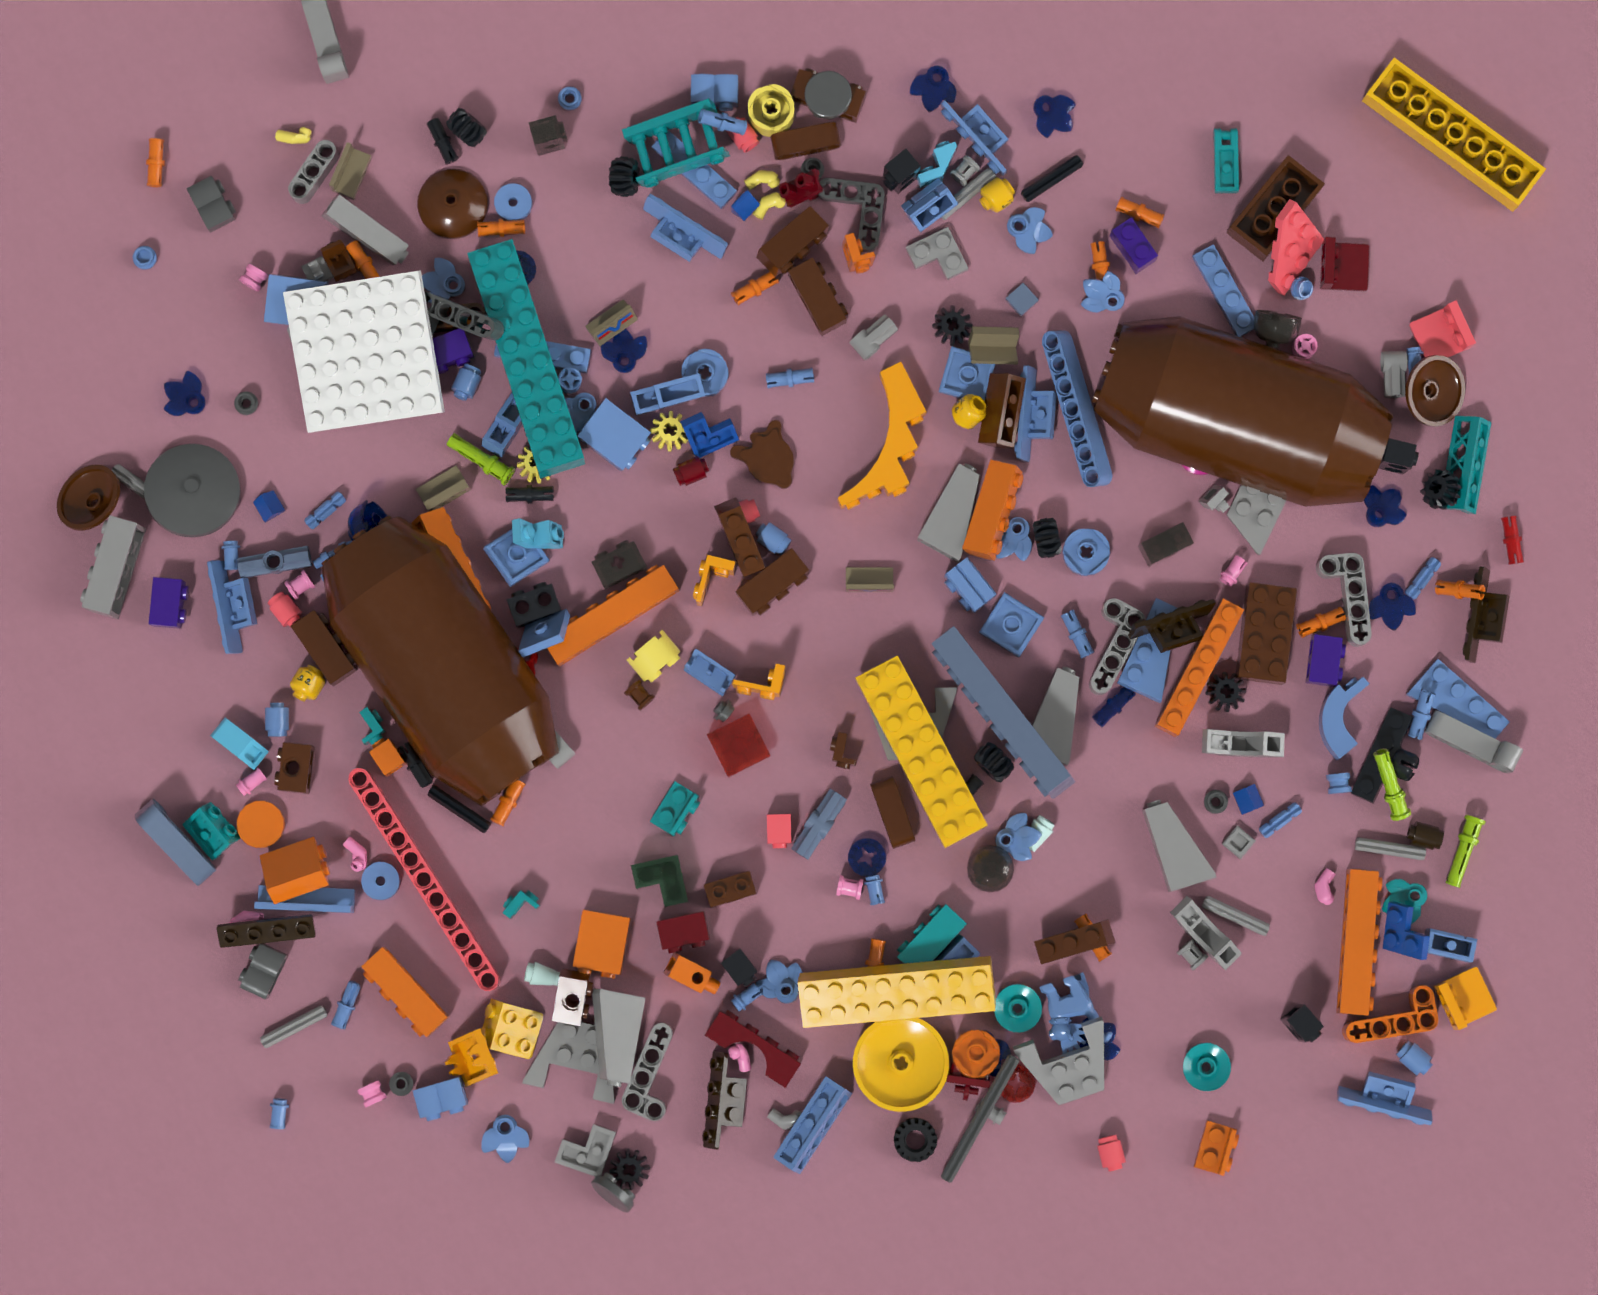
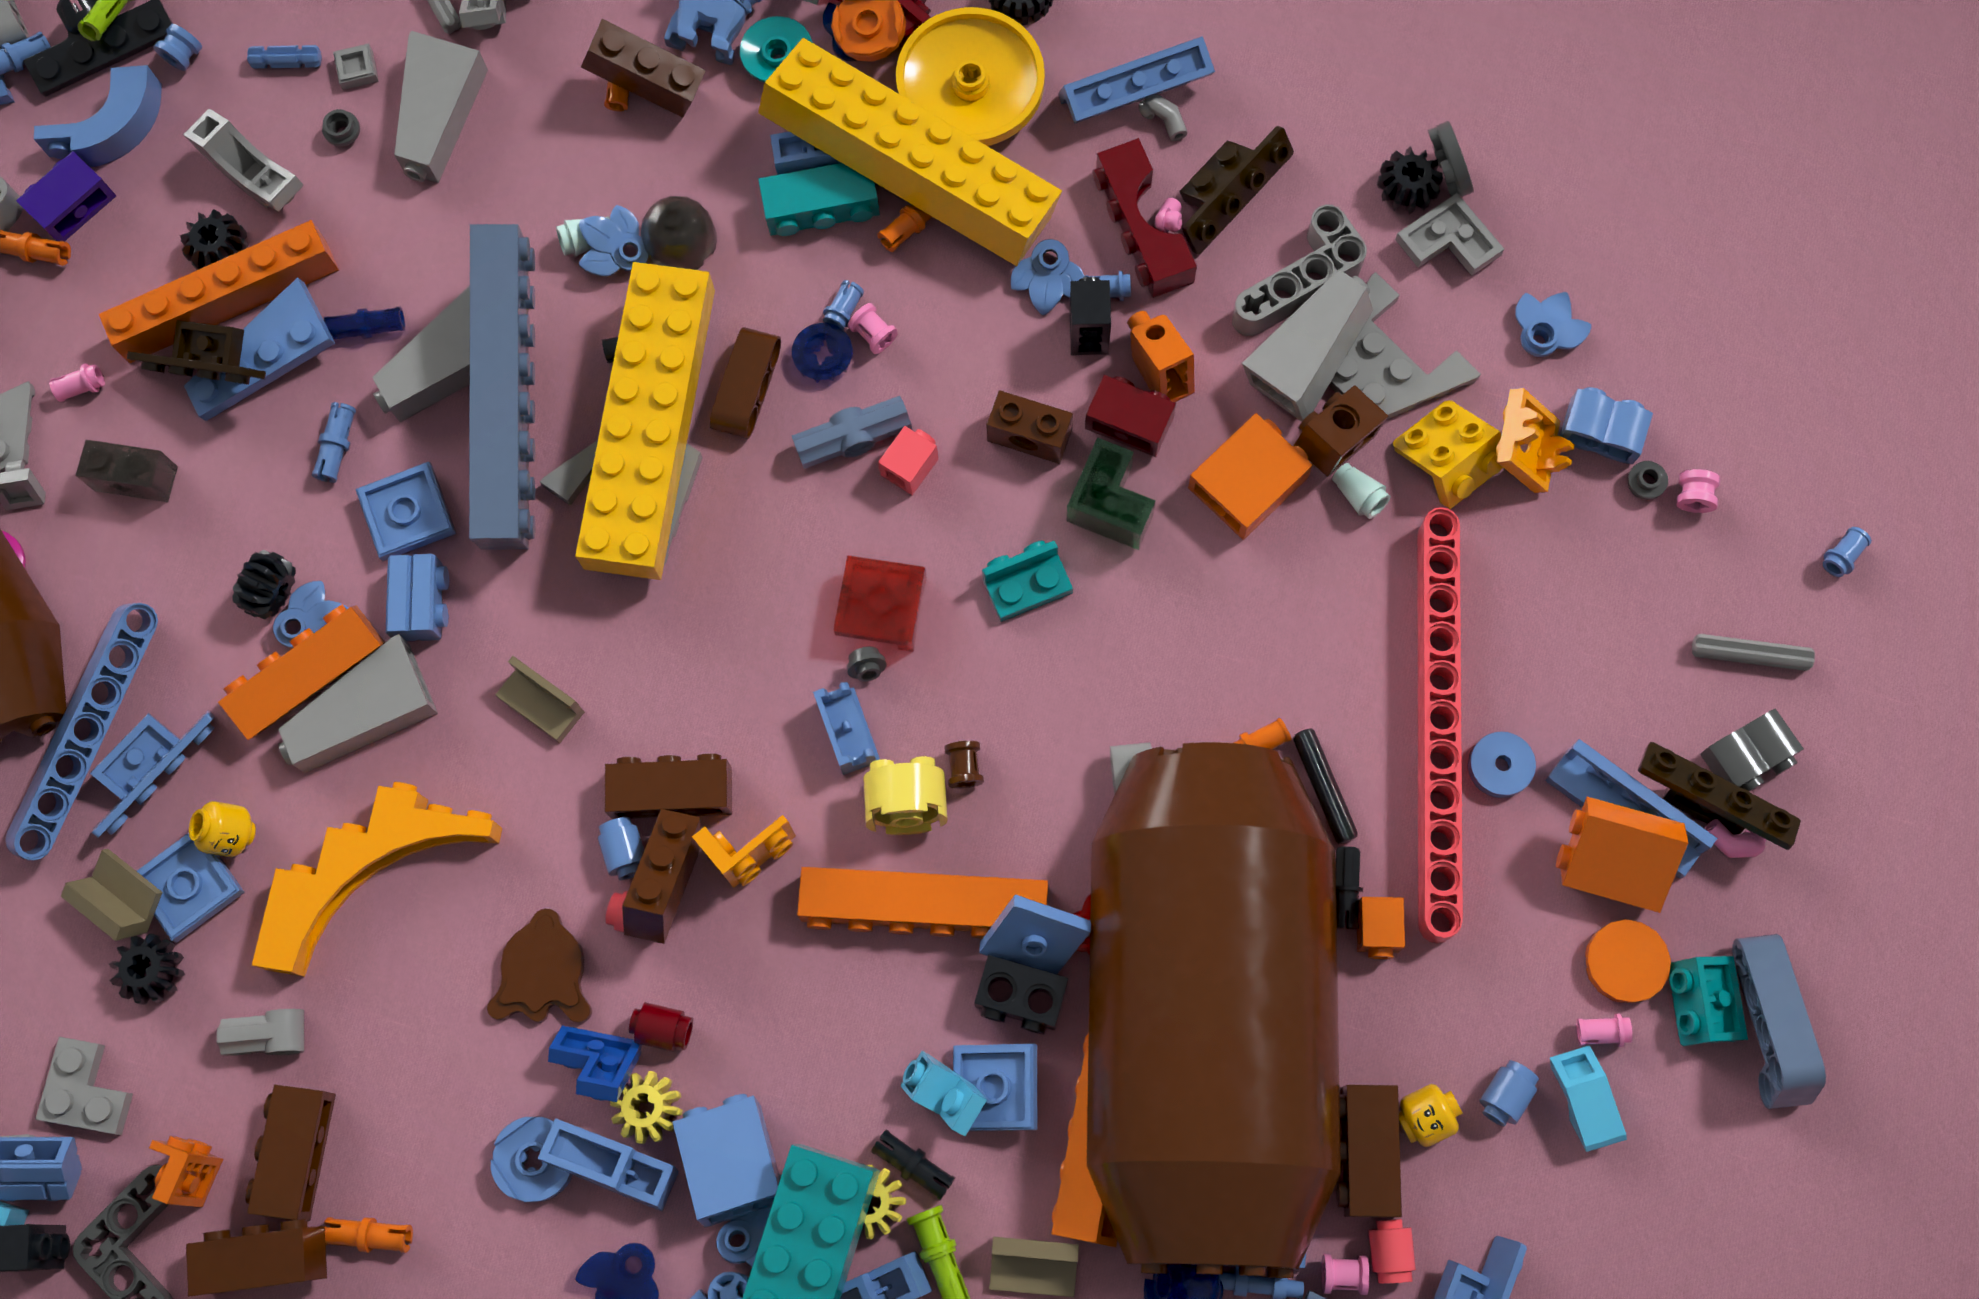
camera: 140 degrees left, 10 degrees down
(301, 780) = (1504, 1016): reddish brown brick -> none
(346, 1005) = (1660, 629): medium blue axle -> none
(359, 854) = (1510, 820): bright pink arm -> none
(373, 720) = (1367, 992): teal bracket -> none
(405, 992) = (1567, 588): orange brick -> none
(513, 903) = (1334, 603): teal bracket -> none
(611, 575) = (841, 951): clear smoke brick -> none
(775, 679) = (764, 644): light orange bracket -> none
(790, 377) = (423, 1062): medium blue pin -> none
(838, 746) = (752, 507): reddish brown bracket -> none
(994, 762) = (566, 350): black gear -> none
(1002, 410) = (165, 804): reddish brown brick -> none
(1022, 299) = (29, 938): sand blue tile -> none
(1086, 538) = (226, 515): medium blue plate -> none
(1113, 649) = (305, 391): light grey beam -> none
(1248, 799) = (302, 105): blue slope -> none
(1266, 633) = (103, 267): reddish brown brick -> none

